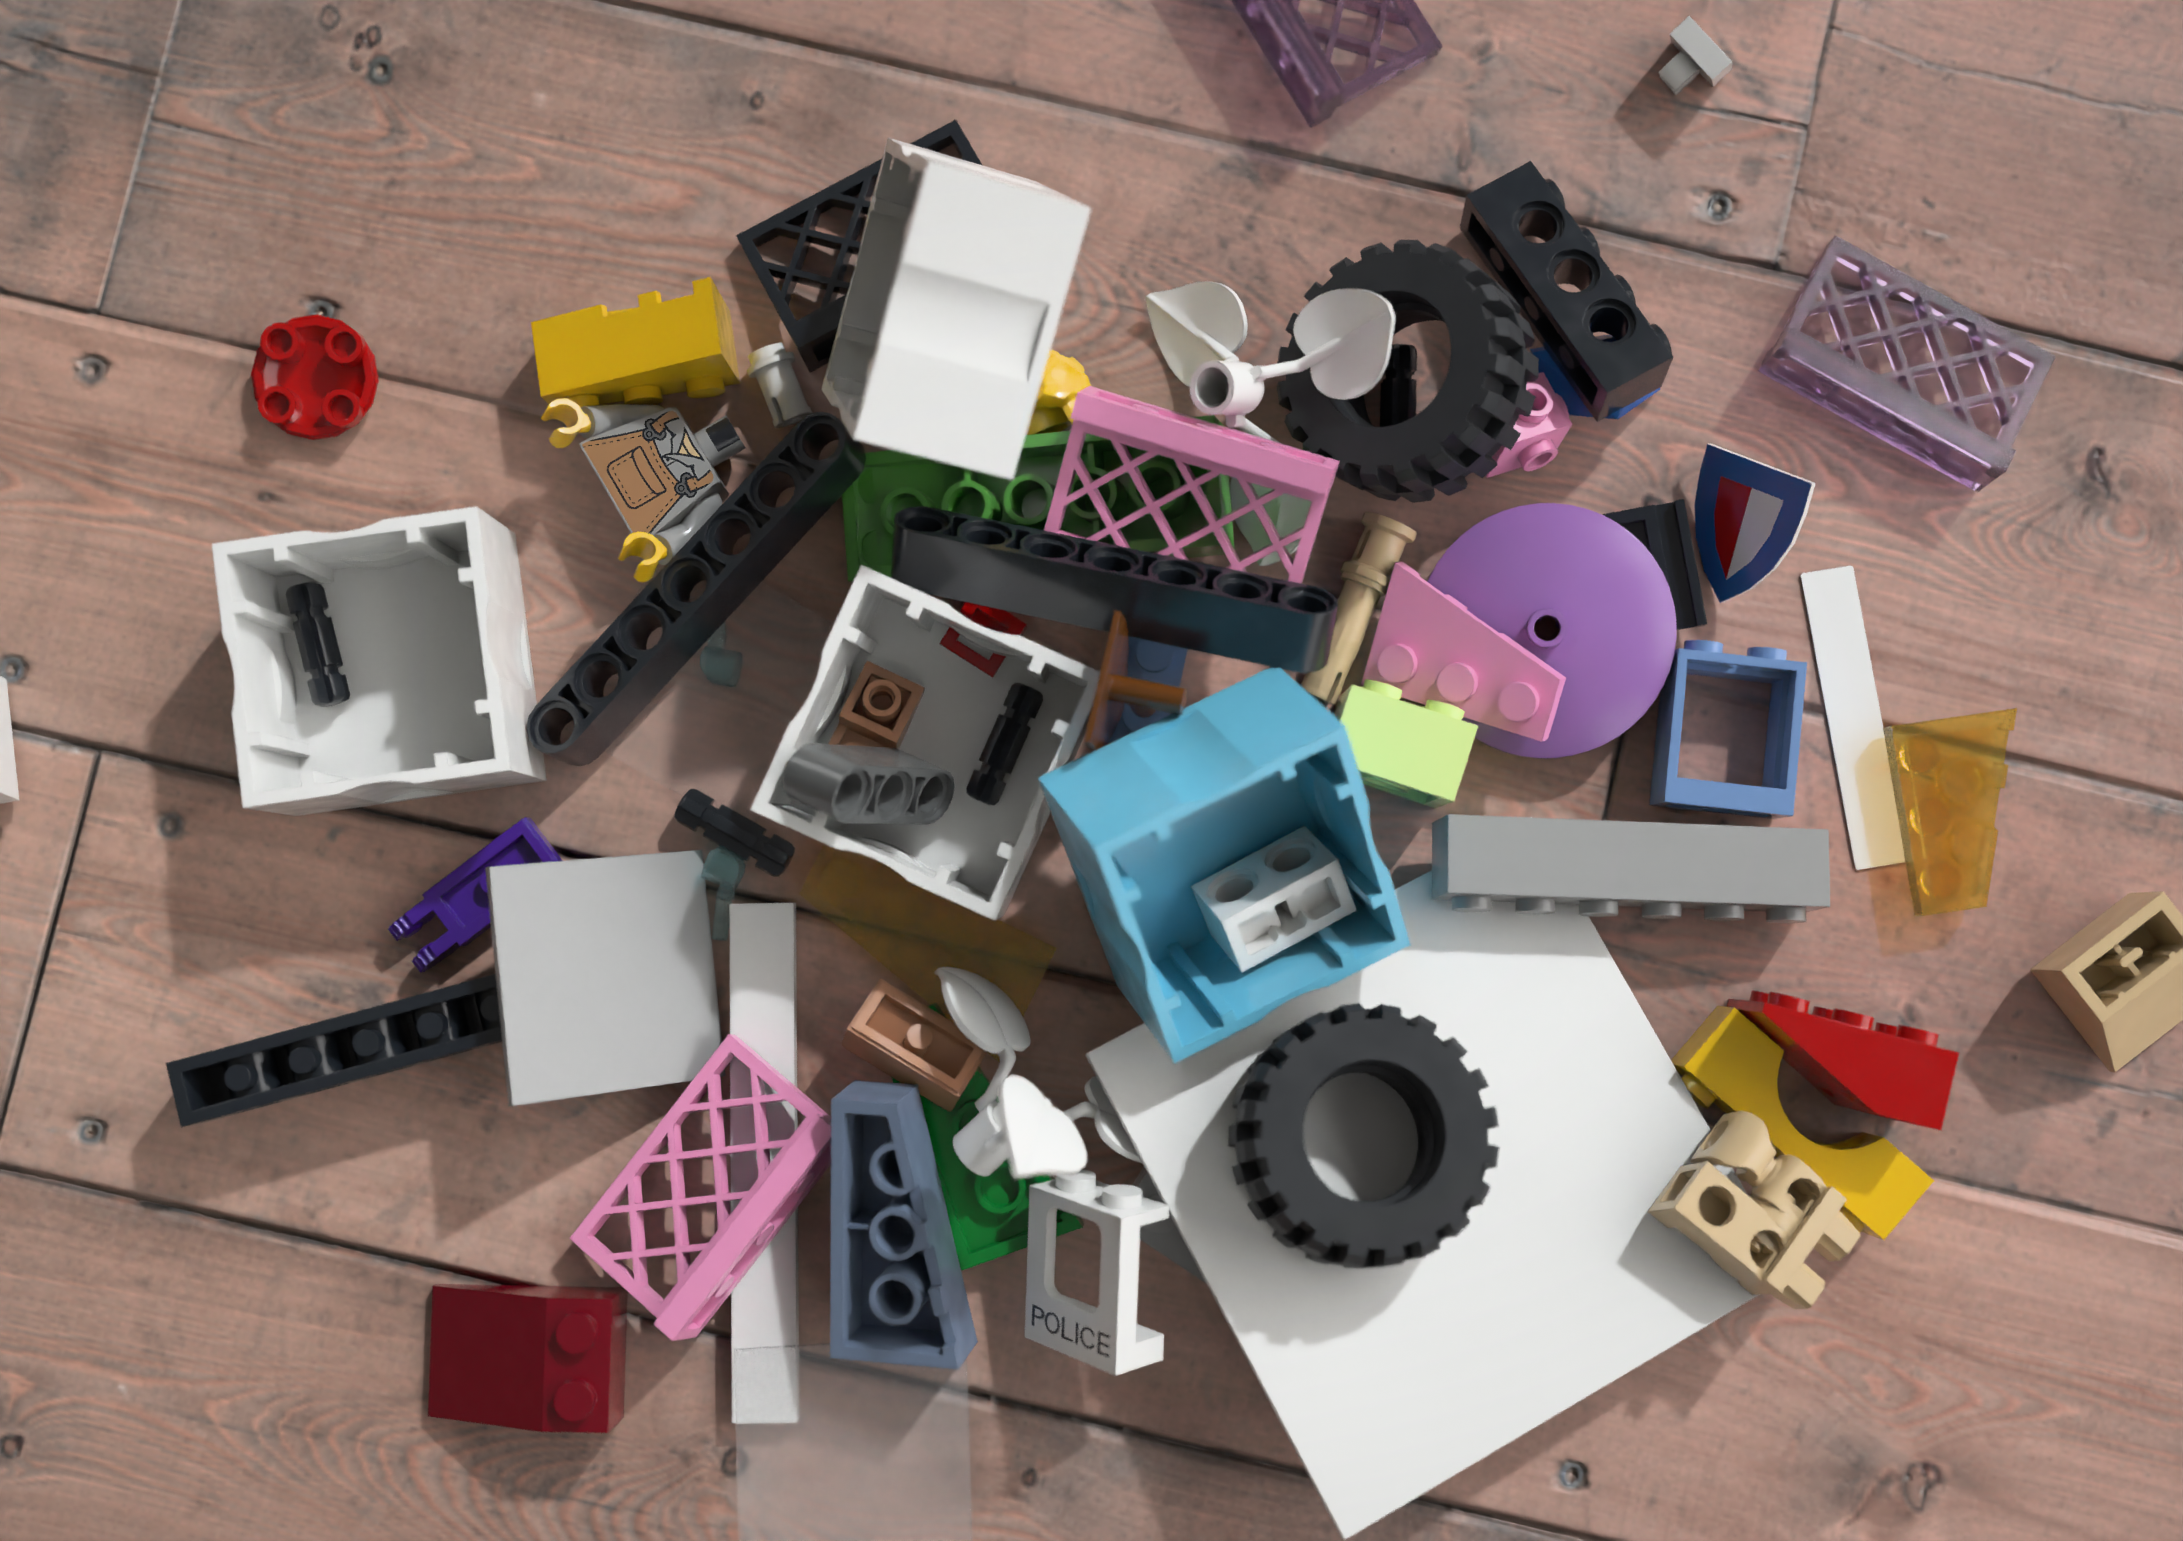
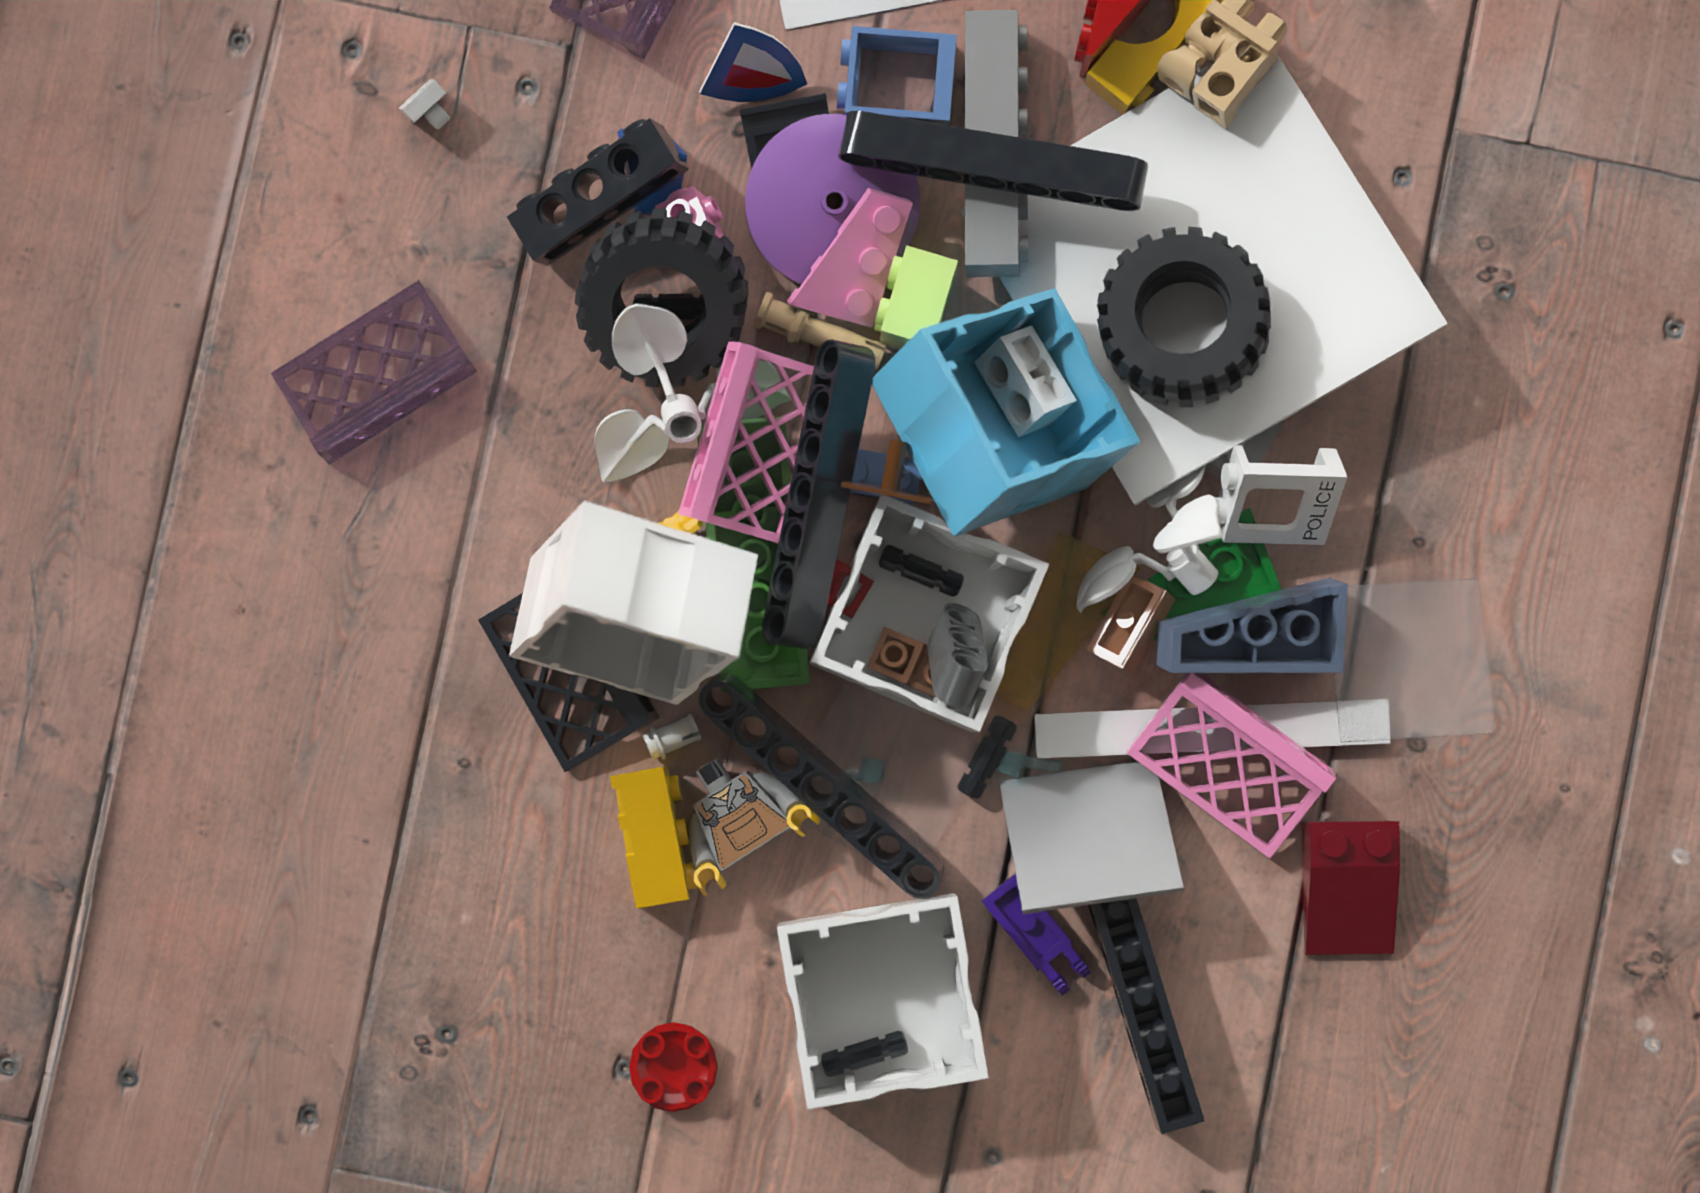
camera: 90 degrees left, 0 degrees up
(1603, 862) = (993, 161): none -> black beam

